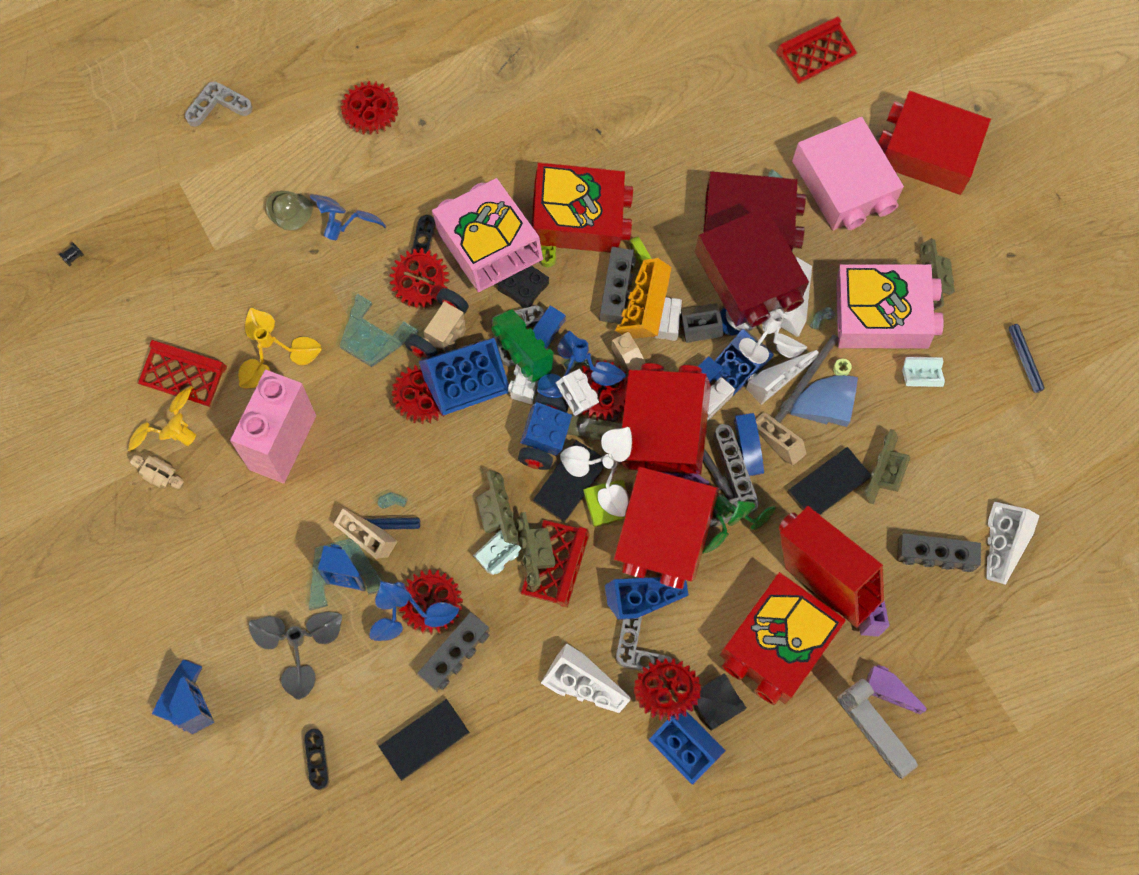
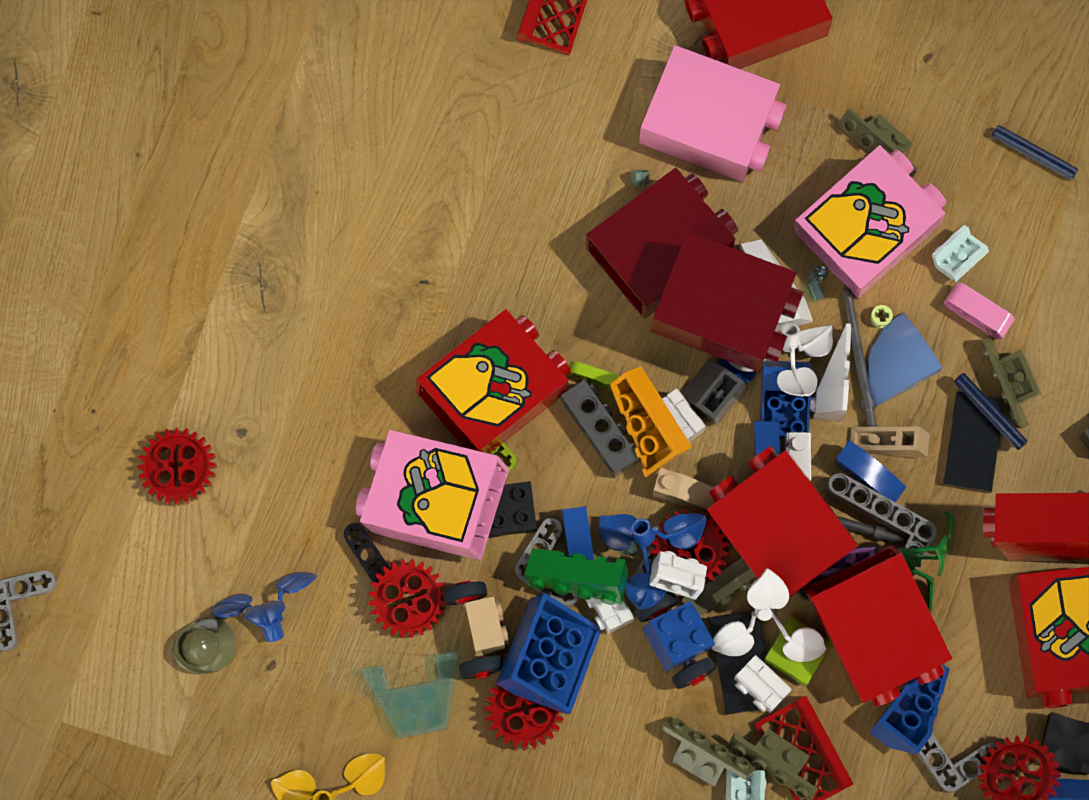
camera: 40 degrees left, 5 degrees up
(568, 500) = (762, 684): none -> white brick
(856, 474) = (990, 411): none -> dark blue axle
(905, 414) = (979, 310): none -> bright pink beam

